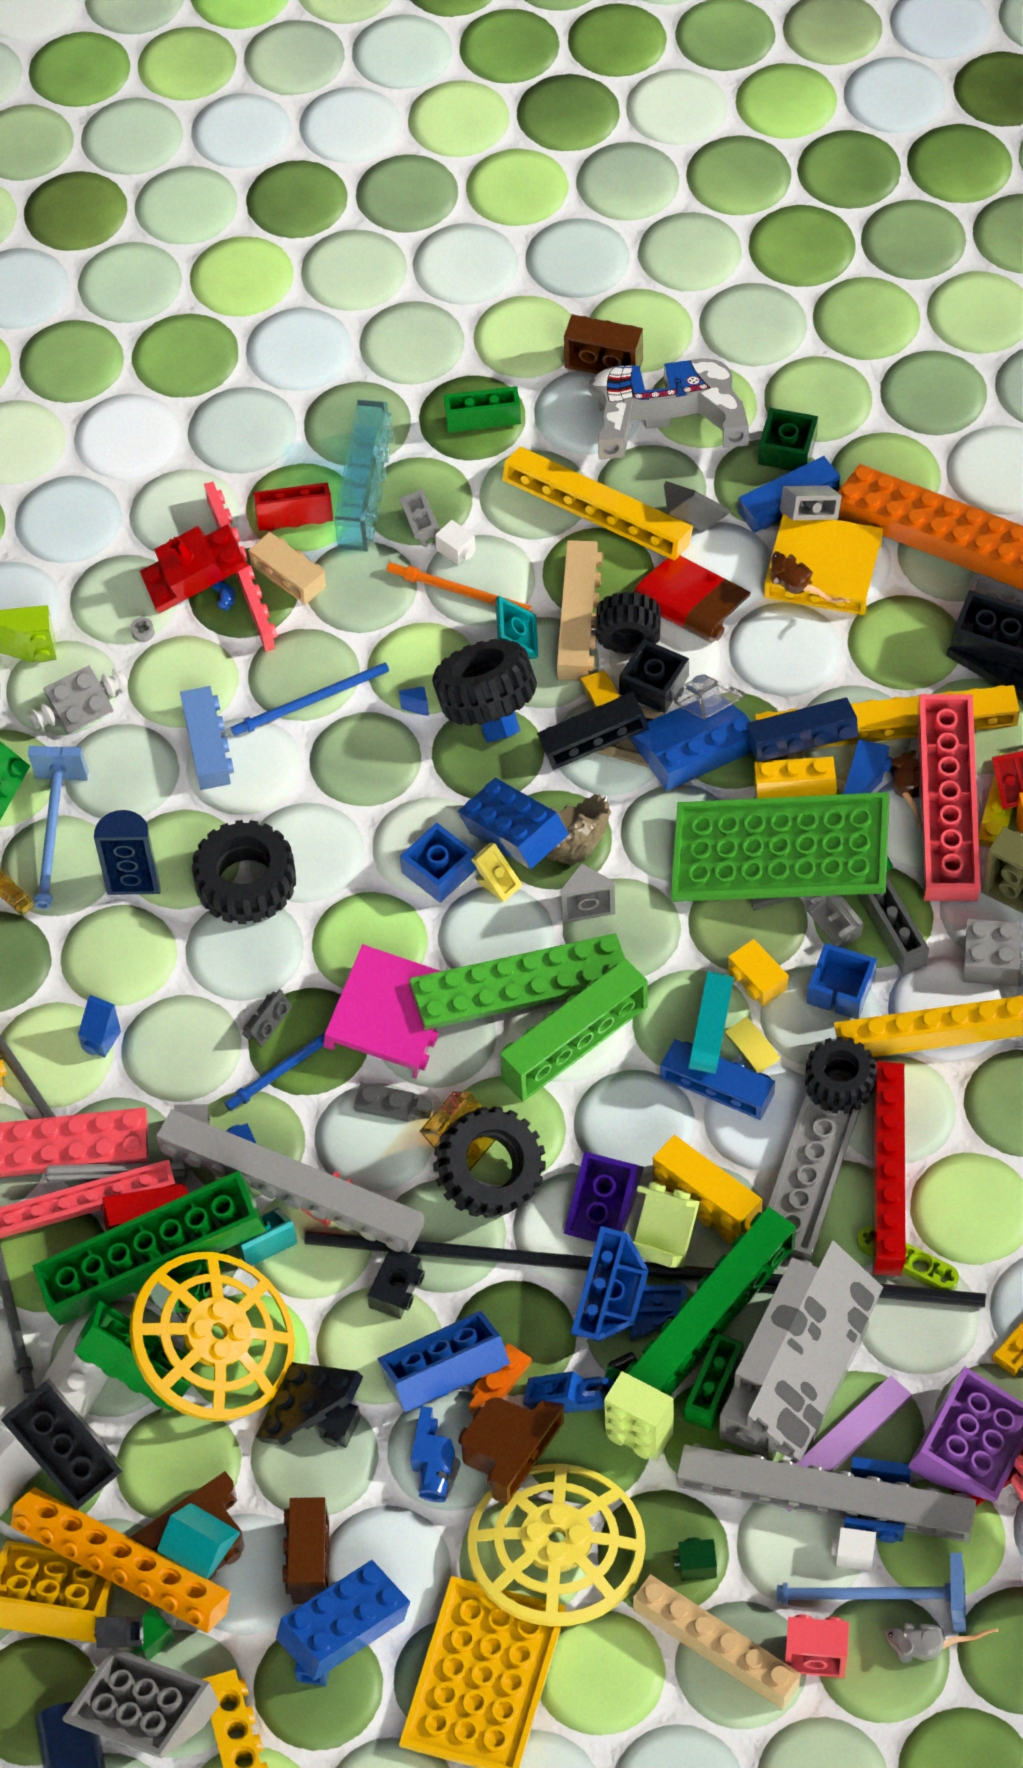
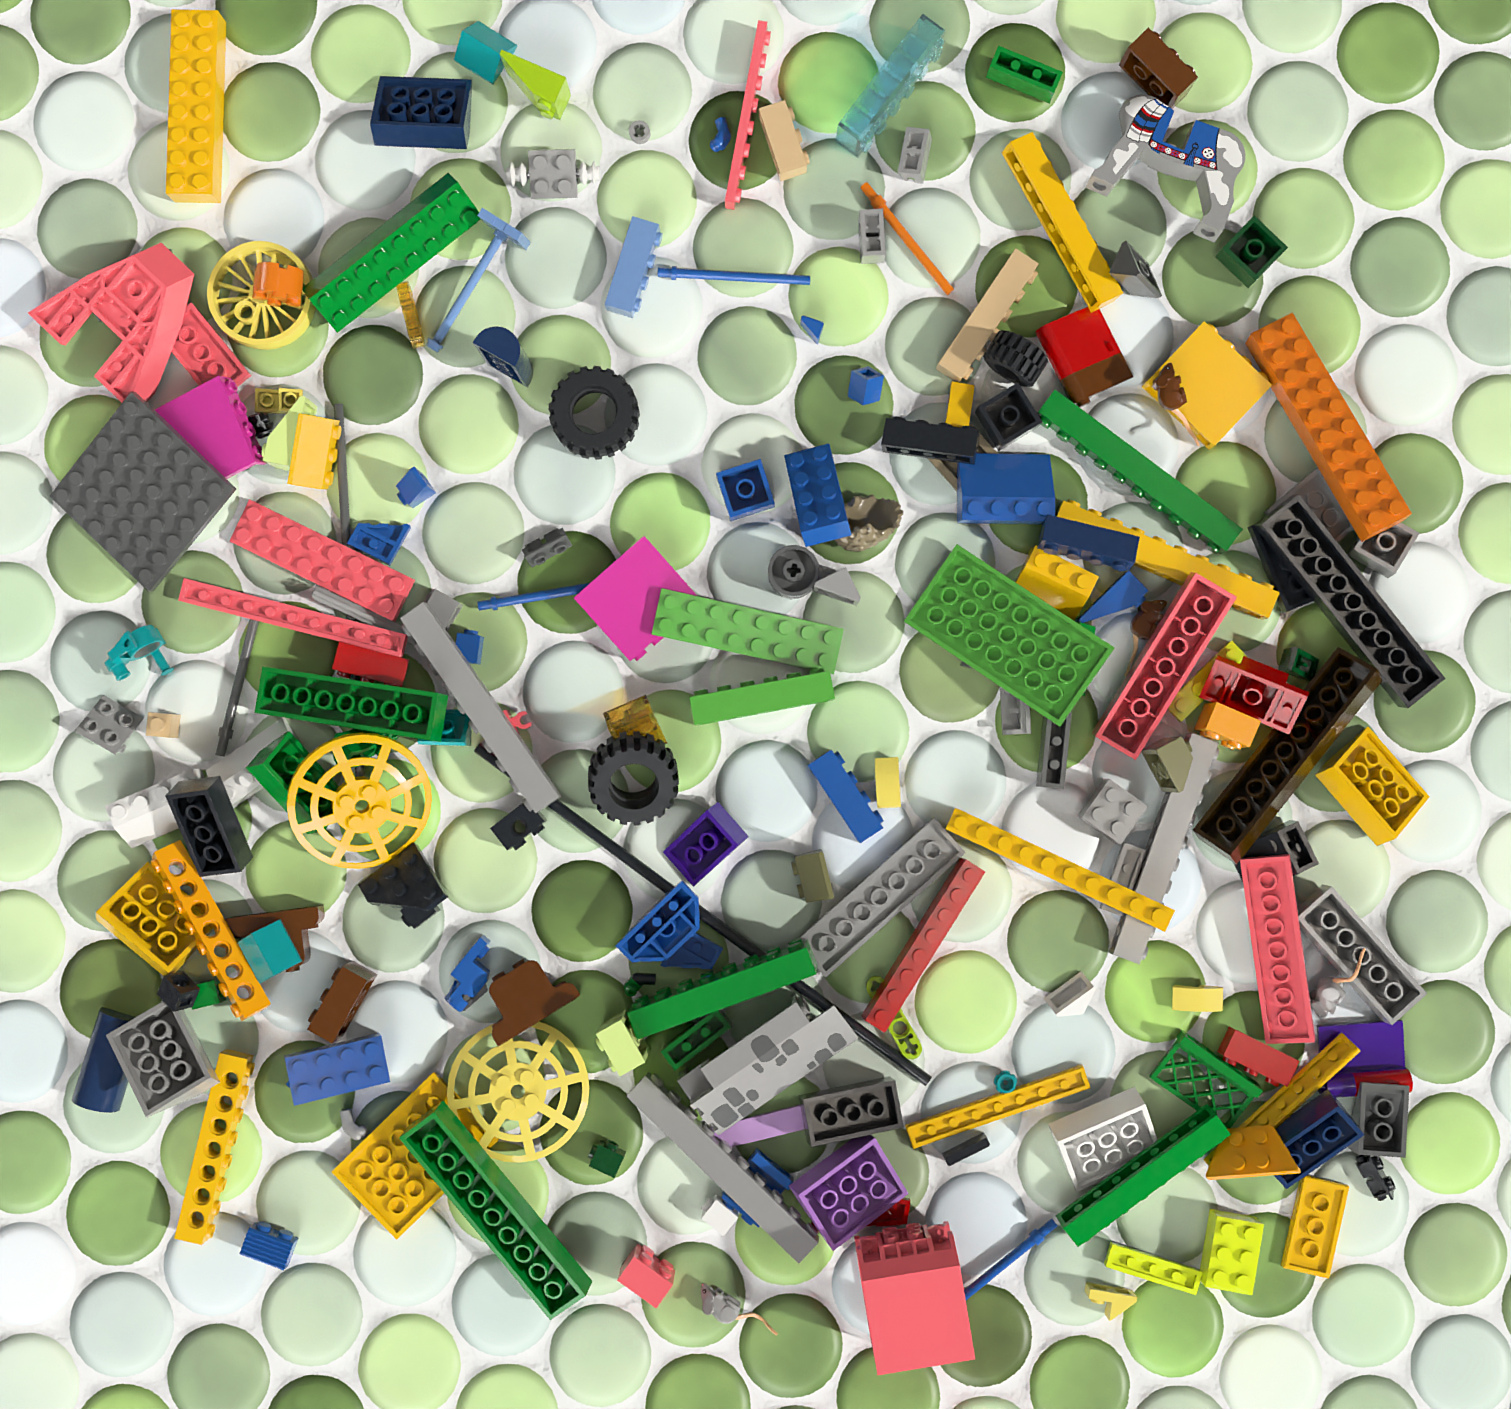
camera: 30 degrees right, 30 degrees up
(86, 1097) = (379, 540): none -> blue wing
(192, 565) = (707, 97): red brick -> none
(293, 506) = (818, 83): red brick -> none
(391, 1103) = (598, 671): dark grey hinge -> none
(393, 1689) = (349, 1127): none -> light grey arm
(424, 598) = (871, 236): none -> light grey brick
(443, 1361) = (513, 913): blue brick -> none
(455, 542) = (928, 194): white brick -> none
(484, 682) = (869, 331): black tyre -> none
(496, 872) = (784, 524): light yellow slope -> none
(502, 1381) = (551, 939): orange hinge -> none
(517, 625) = (927, 308): teal slope -> none
(532, 908) = (795, 558): none -> dark grey wheel
(569, 1389) = (590, 987): blue plate -> none
(609, 1664) = (496, 1210): none -> green brick
(665, 1225) = (729, 901): yellowish green panel -> none
(707, 695) = (1039, 460): clear slope -> none
(711, 1022) = (865, 753): teal beam -> none
(716, 1641) = (584, 1225): tan brick -> none
(723, 1200) = (779, 888): yellow brick -> none
(738, 1157) = (813, 876): none -> olive slope
(757, 973) = (928, 724): yellow brick -> none
(762, 505) = (1220, 303): blue brick -> none
(810, 502) = (1228, 329): light grey brick -> none
(812, 661) = (1138, 473): none -> green brick
(840, 1055) = (950, 864): black tyre -> none
(841, 981) = (985, 772): blue piece -> none
(922, 1360) = (851, 1111): none -> black brick
(952, 1592) = (762, 1291): medium blue tile -> none

